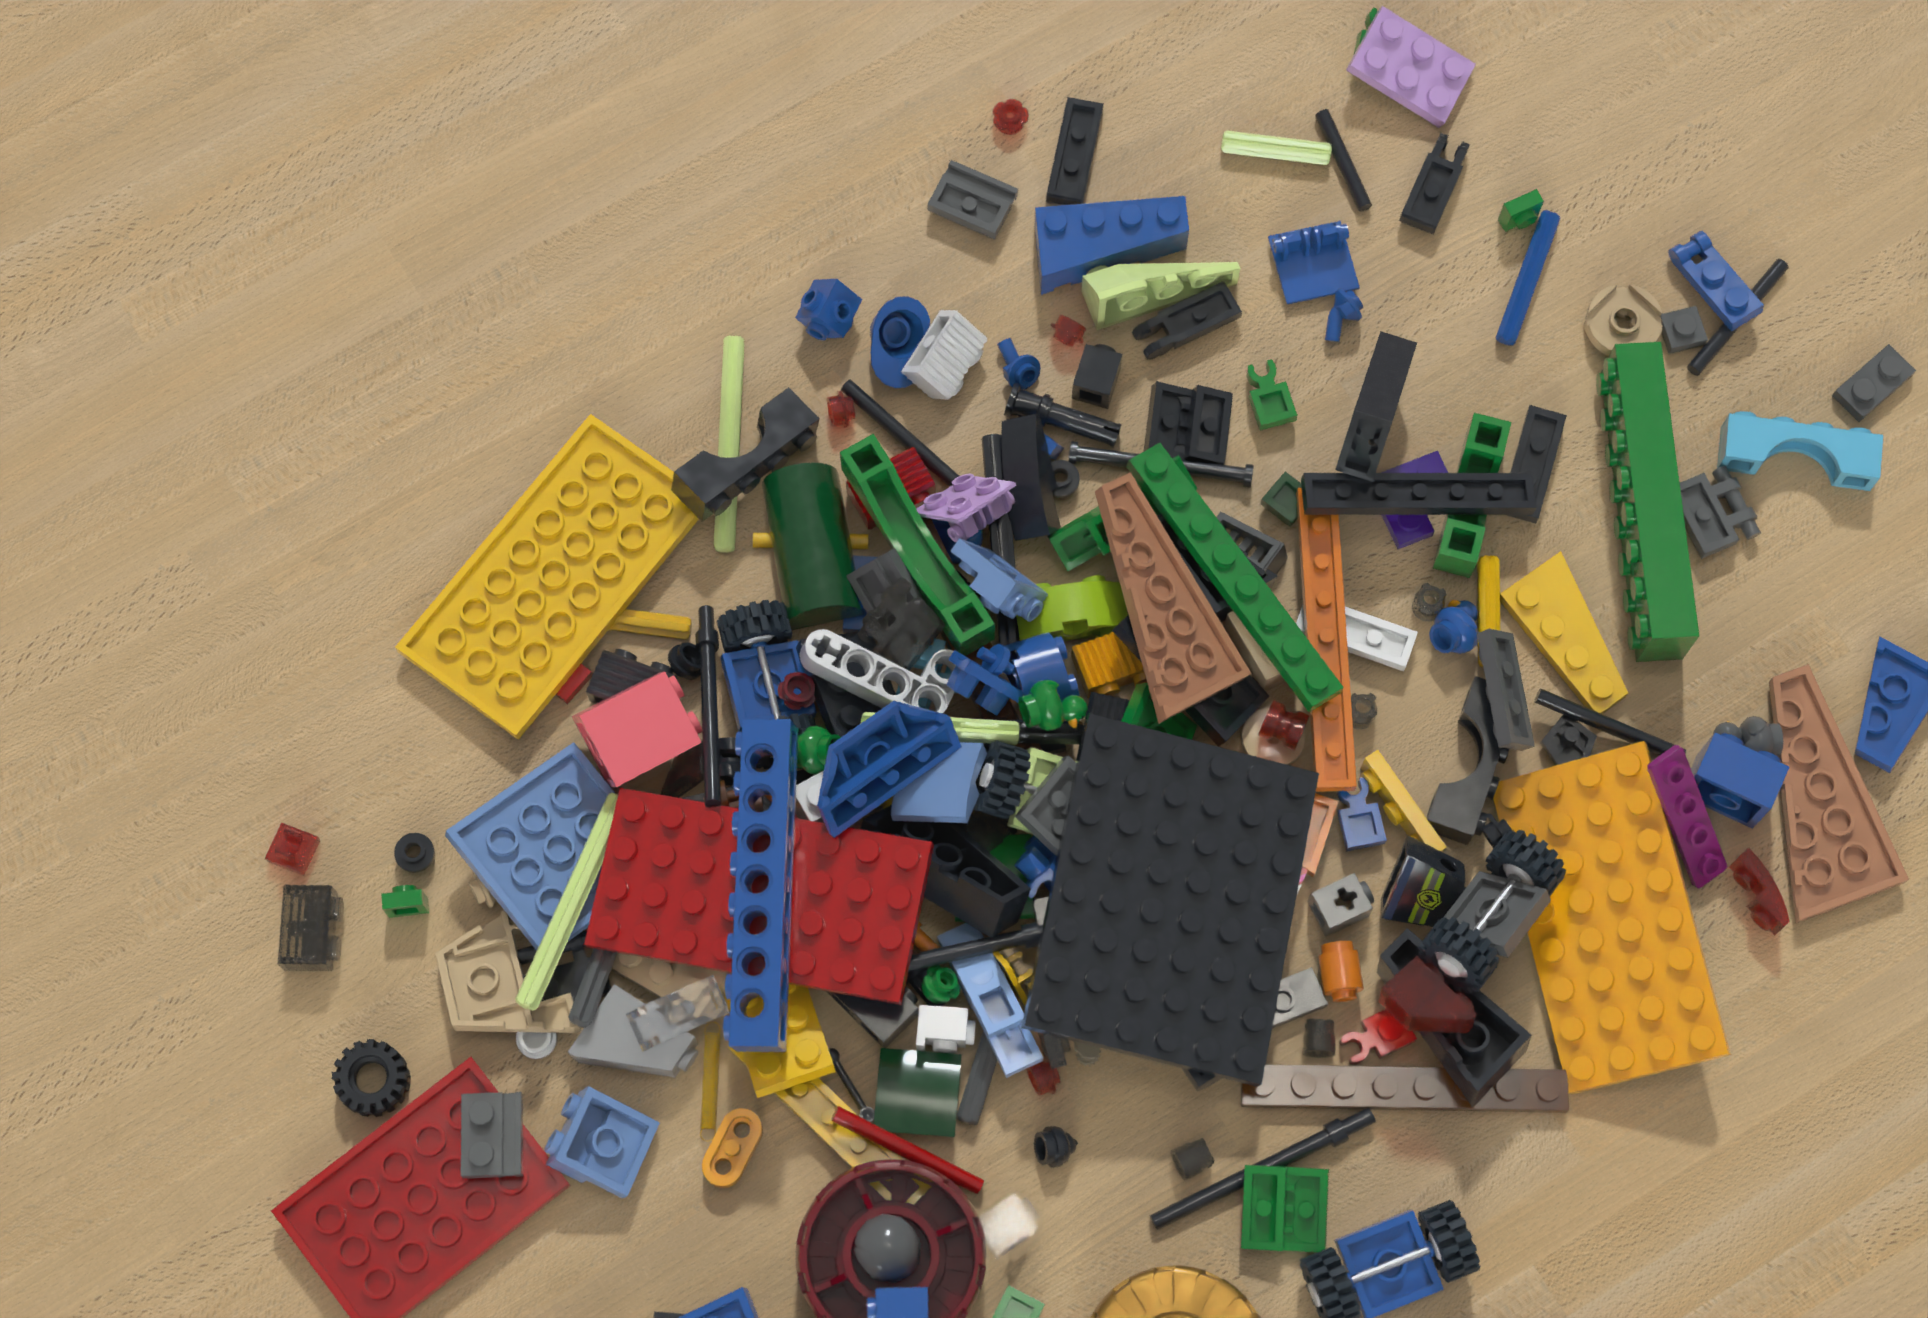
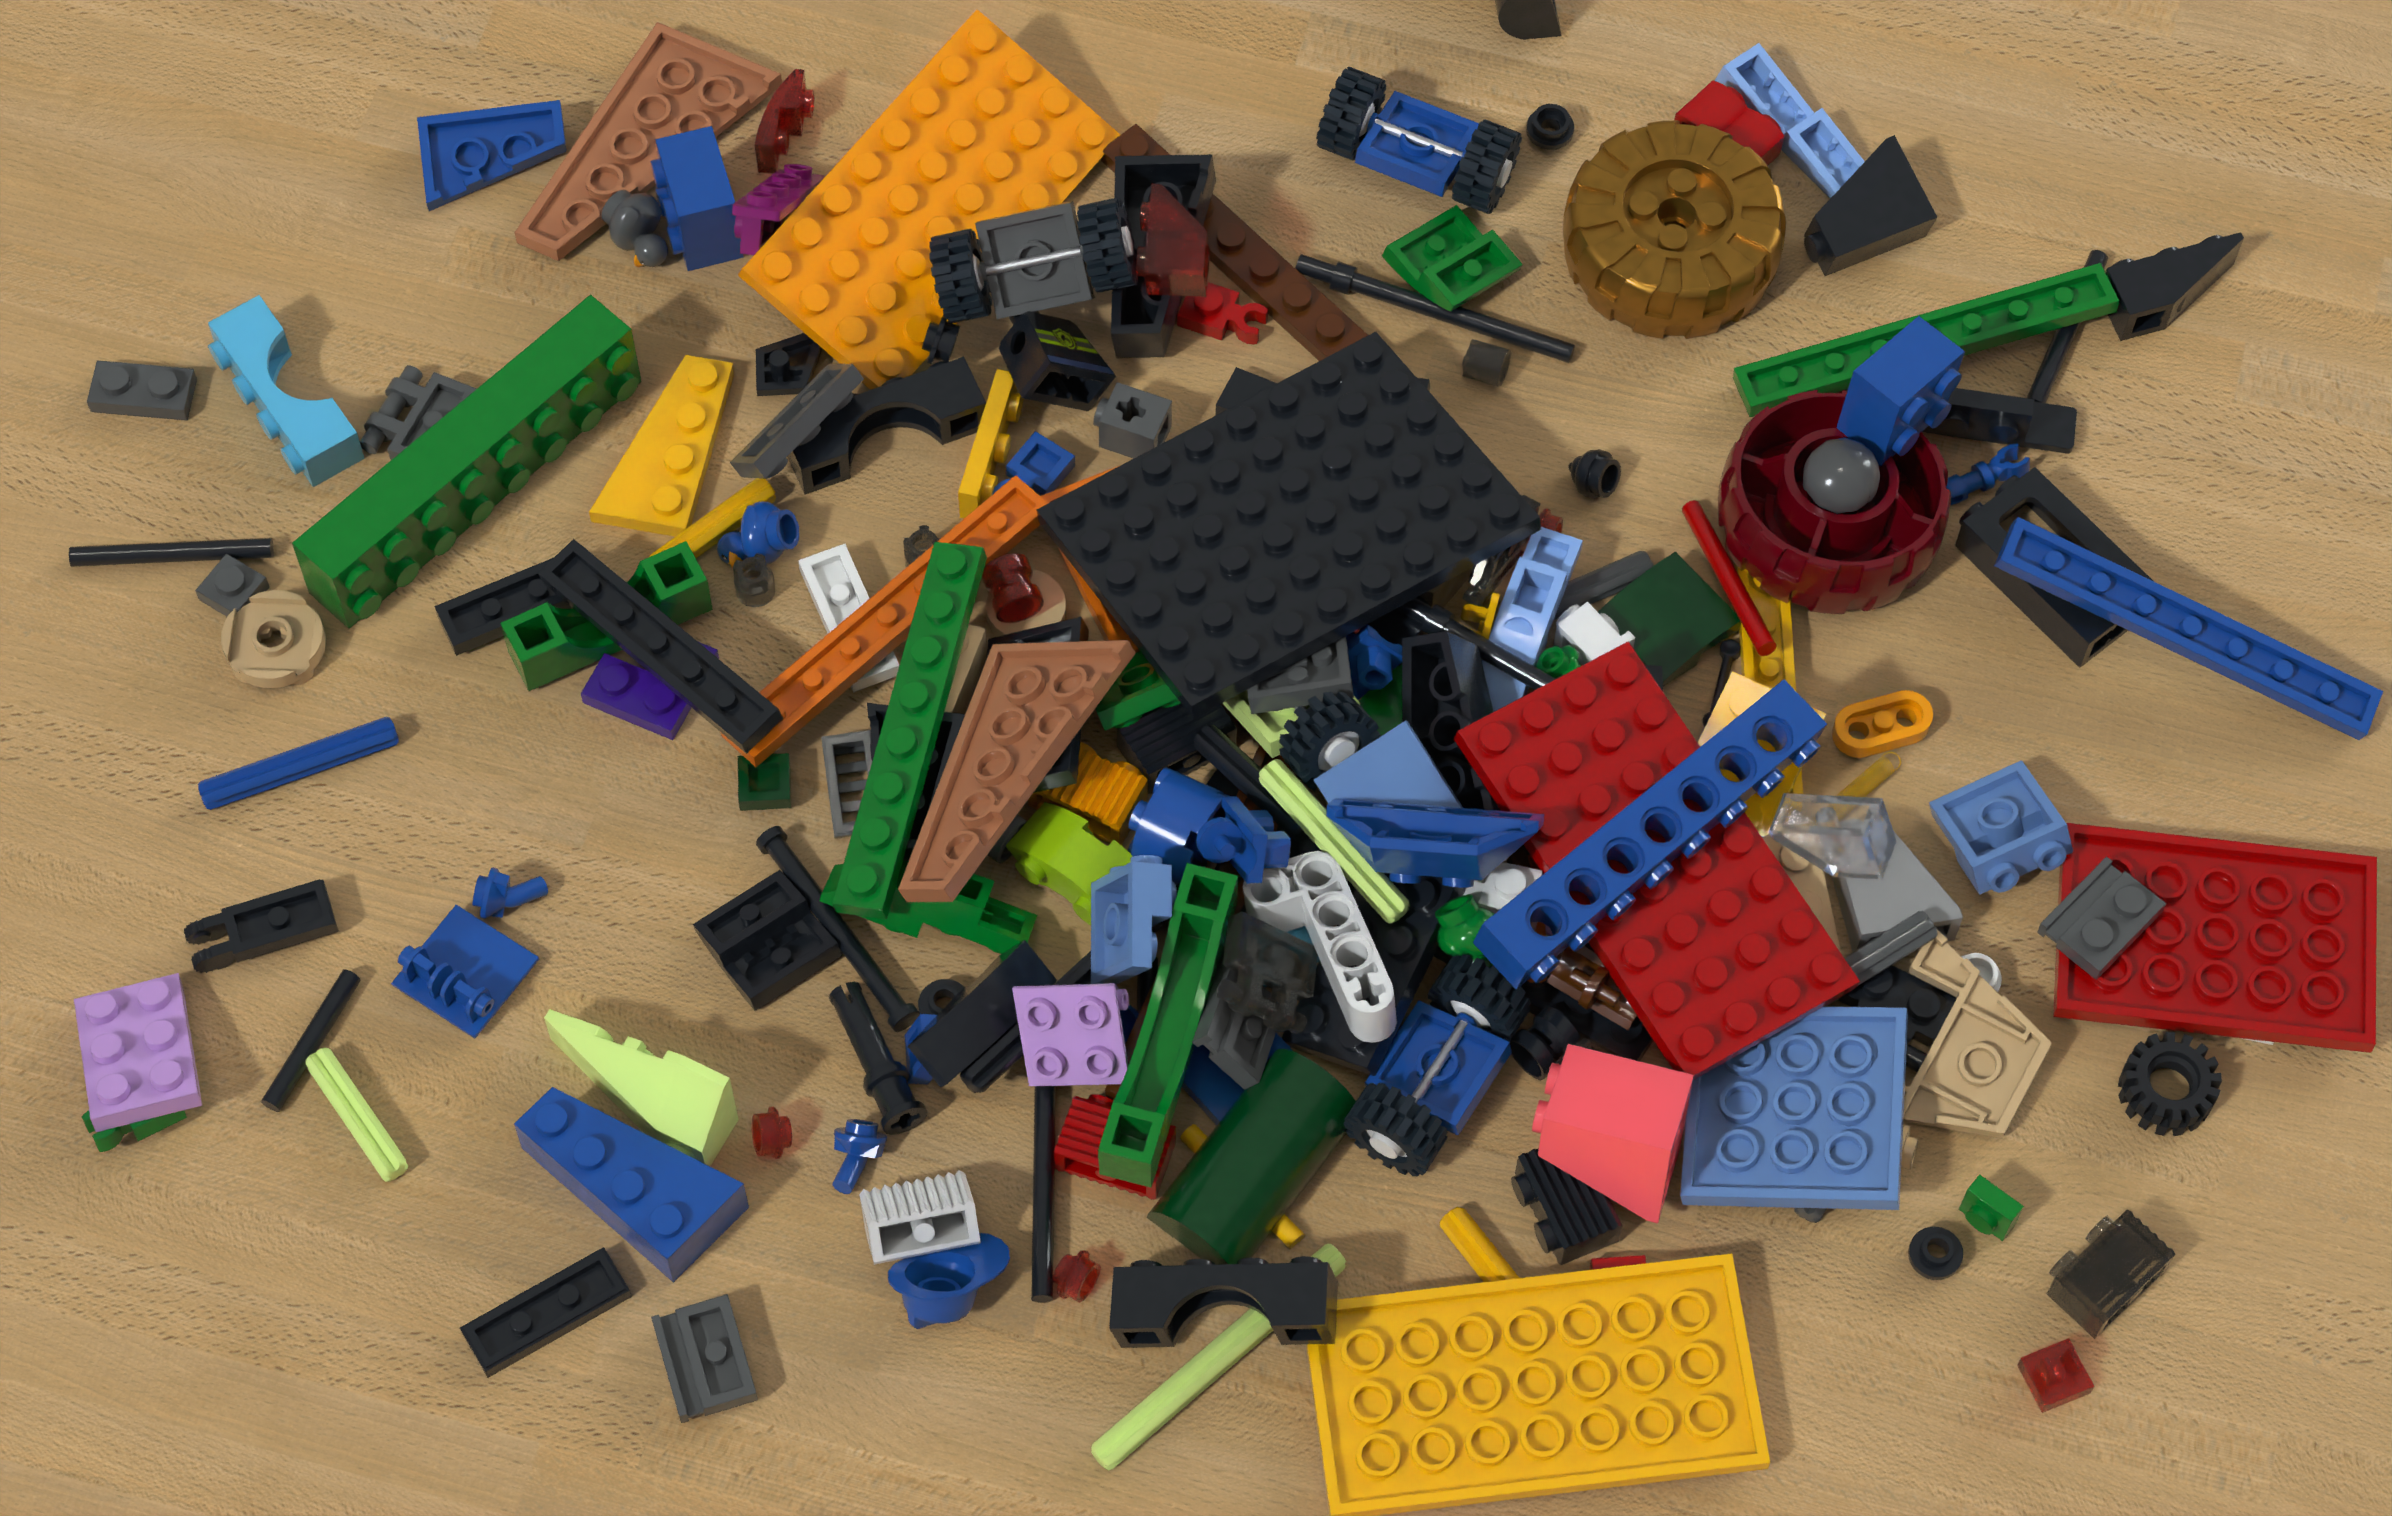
camera: 135 degrees left, 10 degrees down
(567, 910) = (1834, 1028): yellowish green axle -> none
(685, 661) = (1488, 1176): black plate -> none
(707, 644) = (1450, 1173): black bar -> none
(797, 681) = (1420, 1011): dark red plate -> none
(828, 309) = (980, 1378): blue brick -> none
(1008, 1224) = (1700, 449): clear brick -> none
(1010, 125) = (566, 1425): clear red plate -> none
(1045, 707) = (1215, 758): green animal -> none
(1097, 375) = (797, 1060): black brick -> none
(1189, 319) = (653, 1023): black hinge -> none
(1270, 401) = (667, 880): green plate -> none
(1319, 1038) = (1274, 350): clear smoke hose -> none
(1340, 971) = (1196, 377): orange brick -> none
(1376, 406) = (601, 739): black piece -> none
(1521, 211) = (226, 819): green plate -> none
(1601, 721) = (735, 345): black bar -> none
(1716, 281) = (149, 591): blue plate -> none

